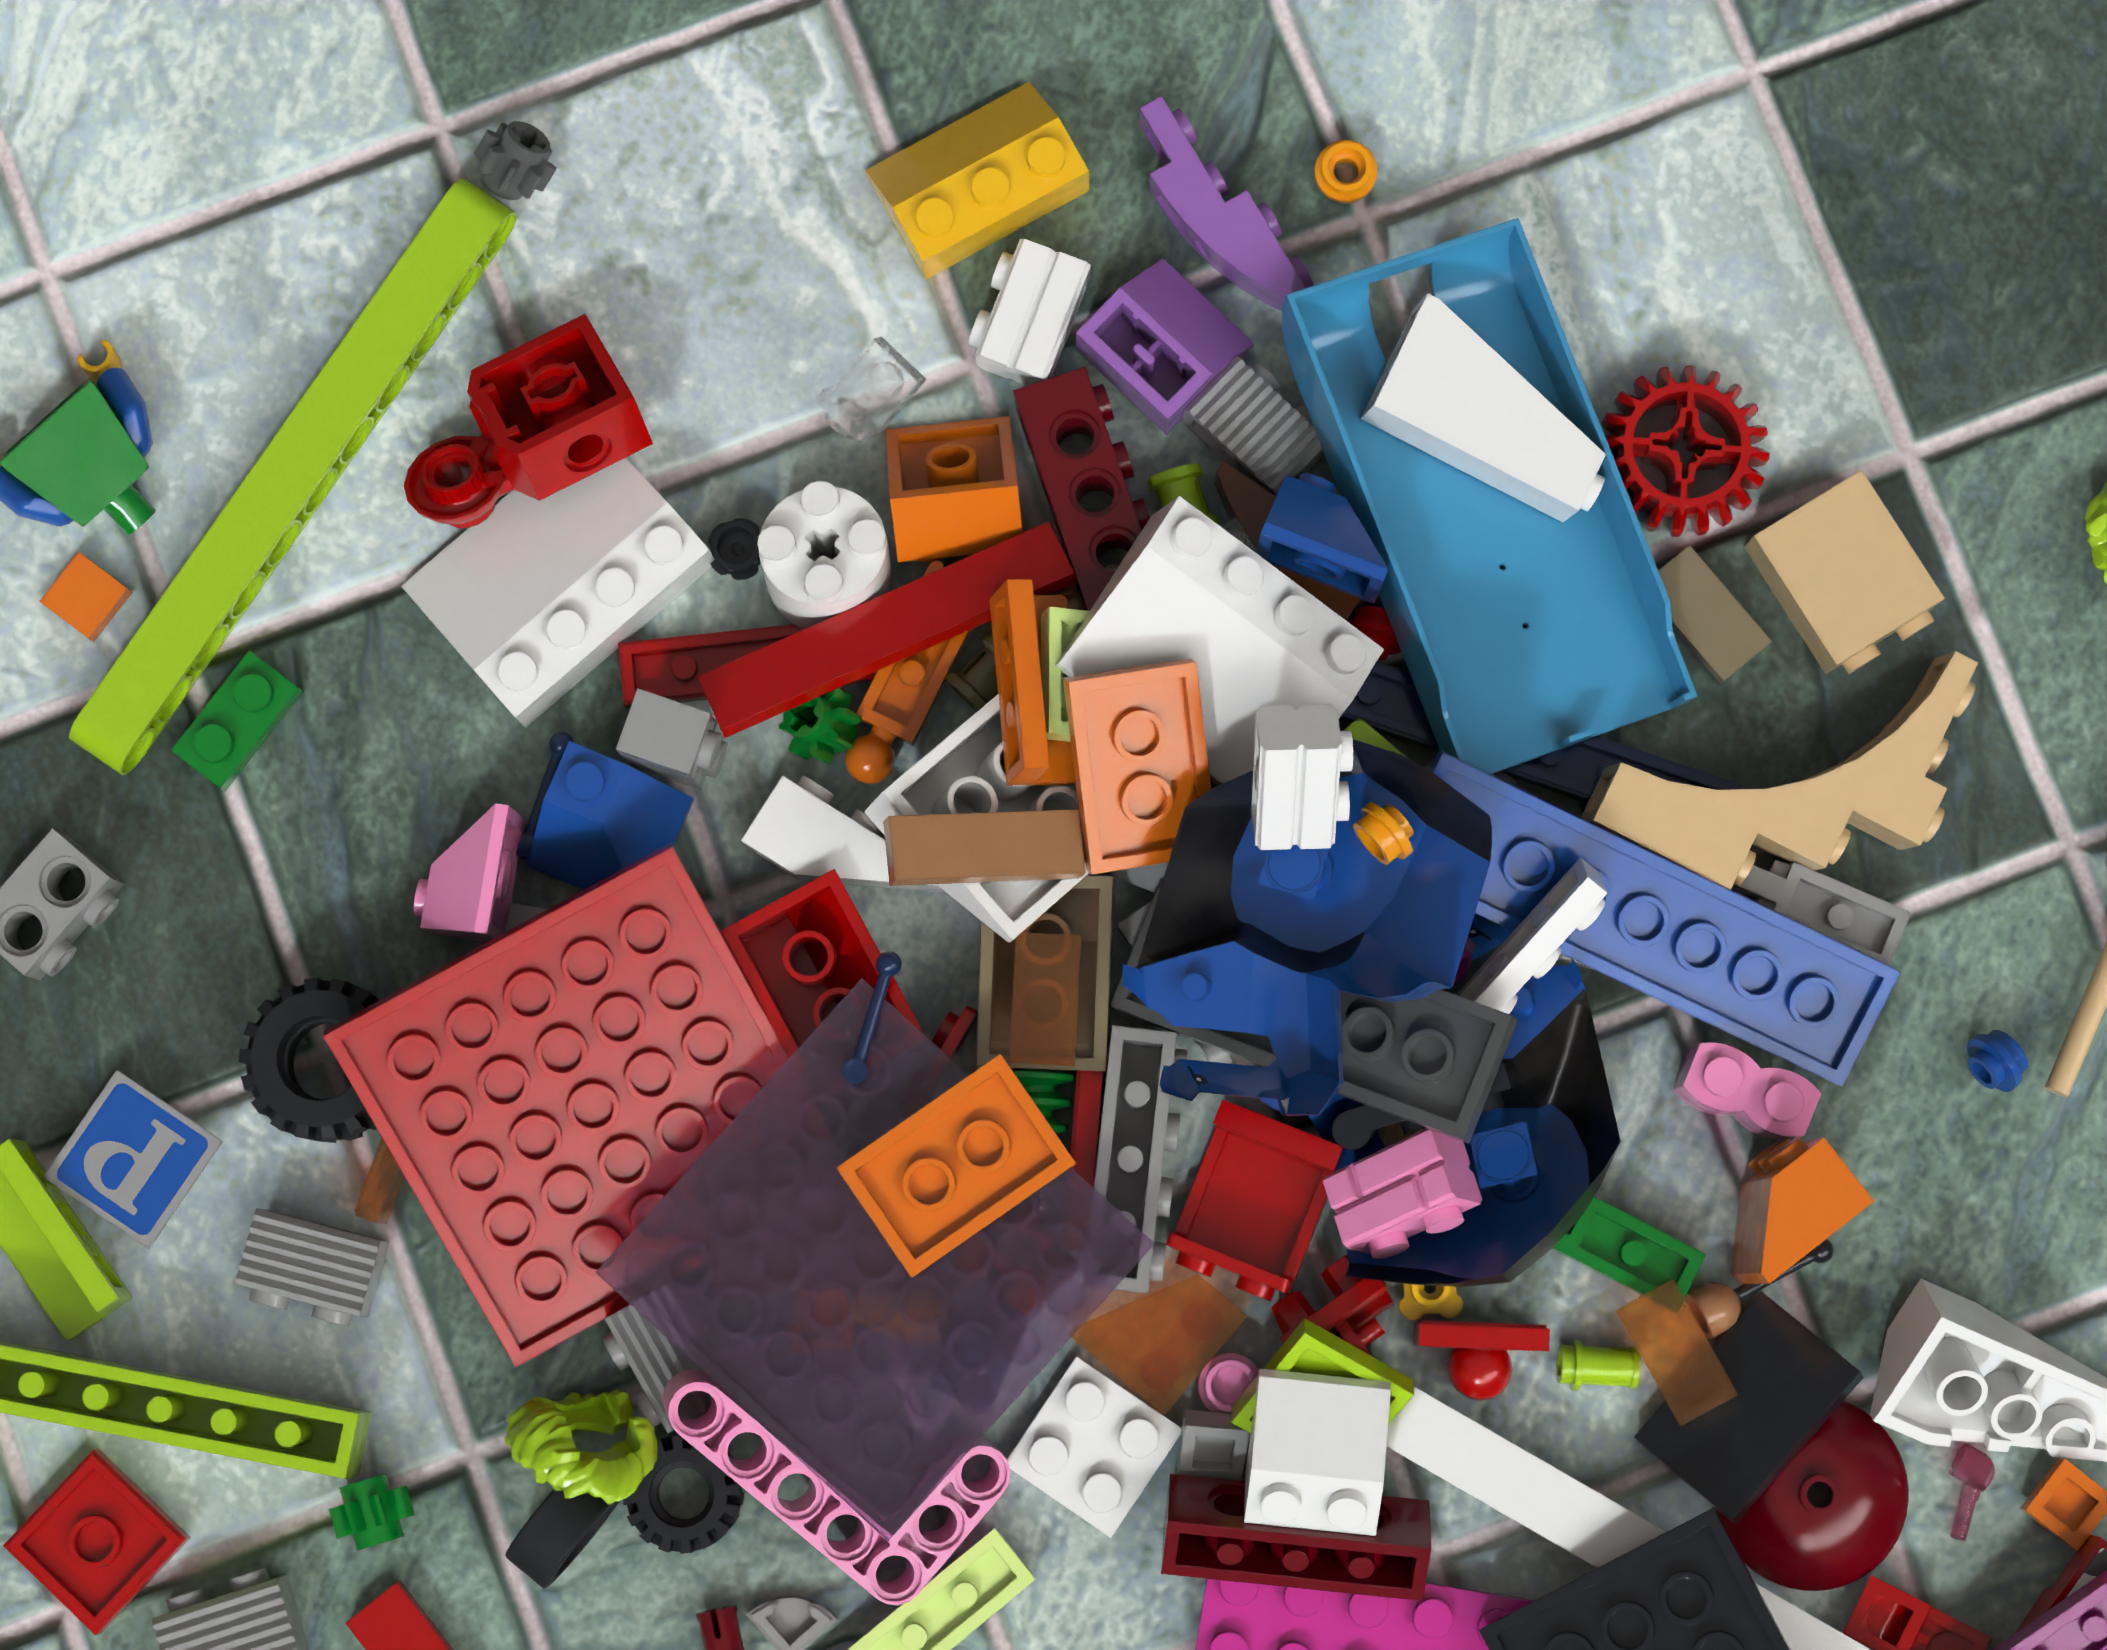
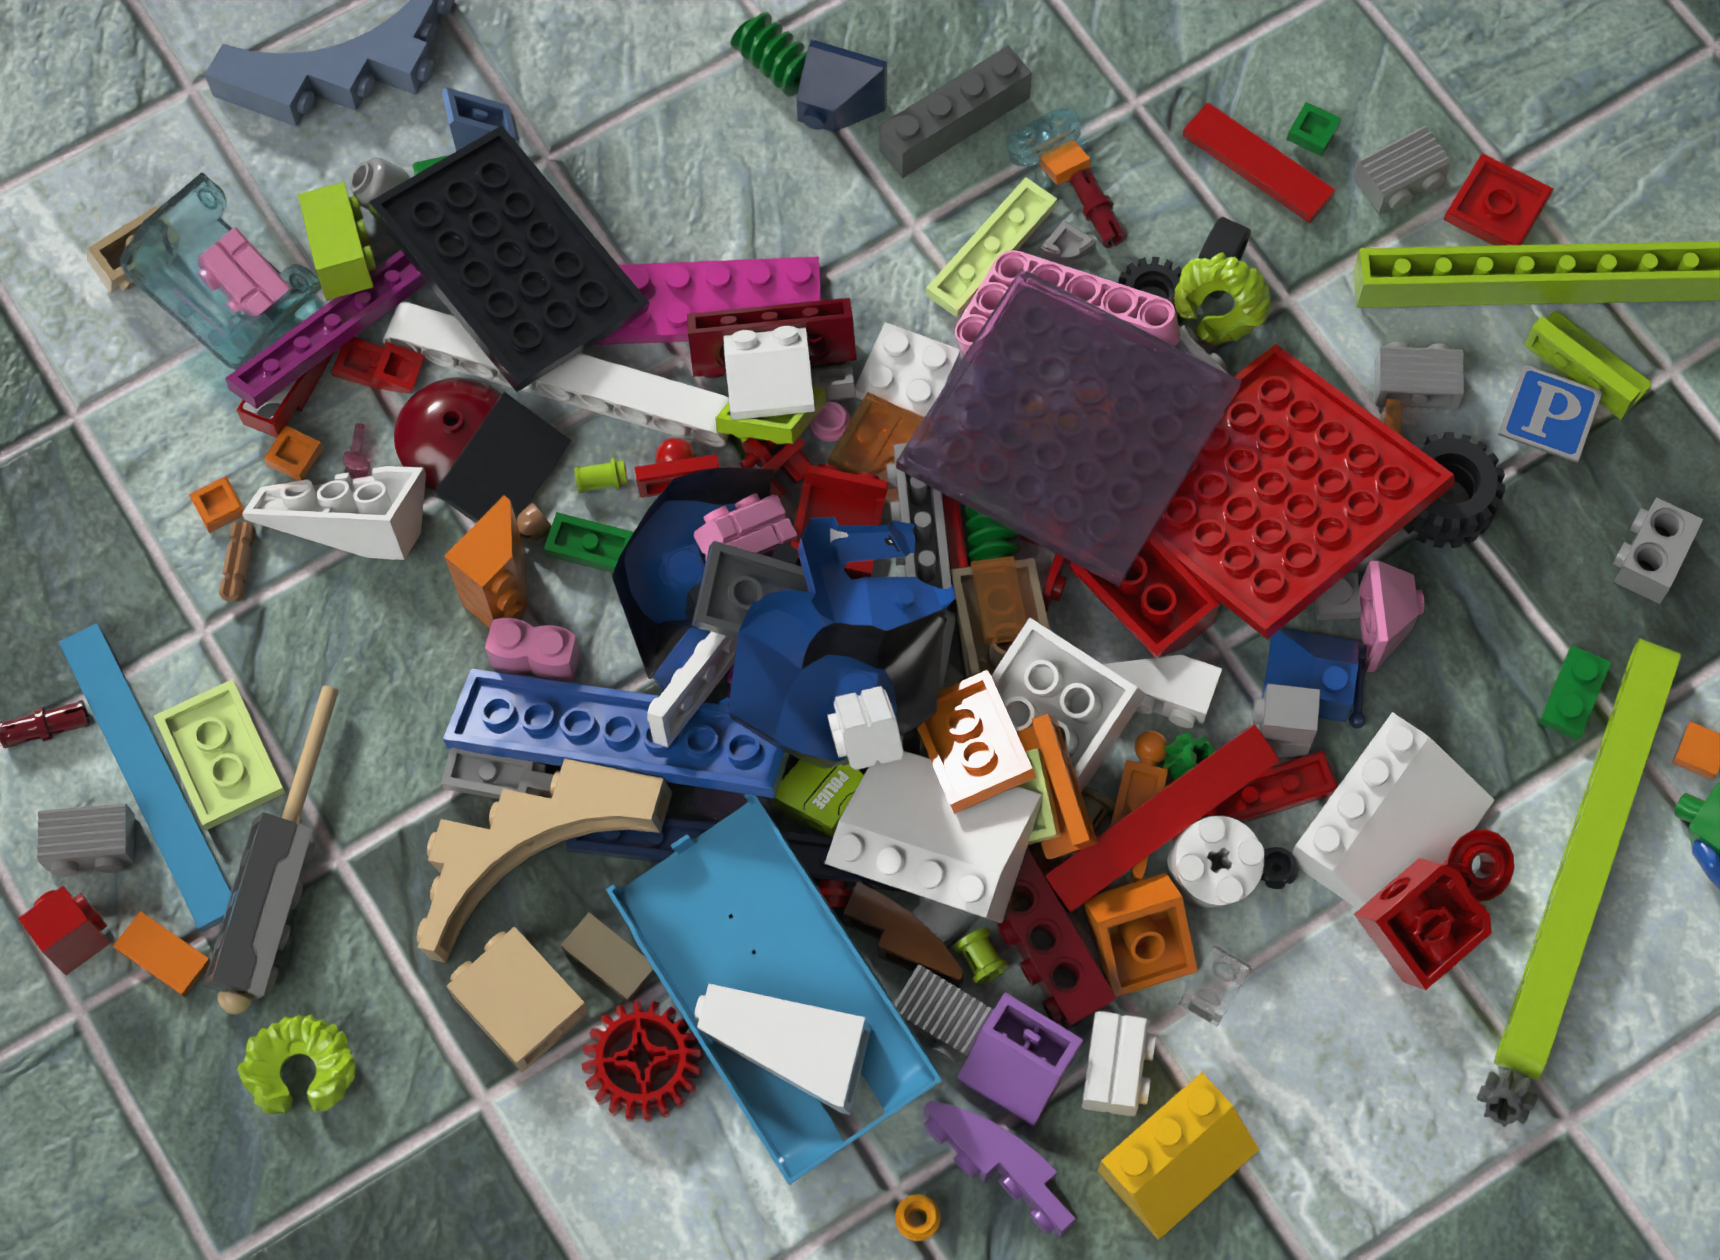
camera: 165 degrees right, 15 degrees down
(371, 1512) = (1338, 247): green gear -> none
(855, 1069) = (1110, 524): dark blue hinge -> none
(956, 1165) = (1032, 474): orange plate -> none
(984, 847) = (1062, 667): medium nougat tile -> none
(1321, 538) = (883, 922): blue slope -> none
(1384, 832) = (801, 720): light orange plate -> none
(1676, 1352) = (553, 486): clear orange tile -> none
(1996, 1060) = (371, 704): blue plate -> none

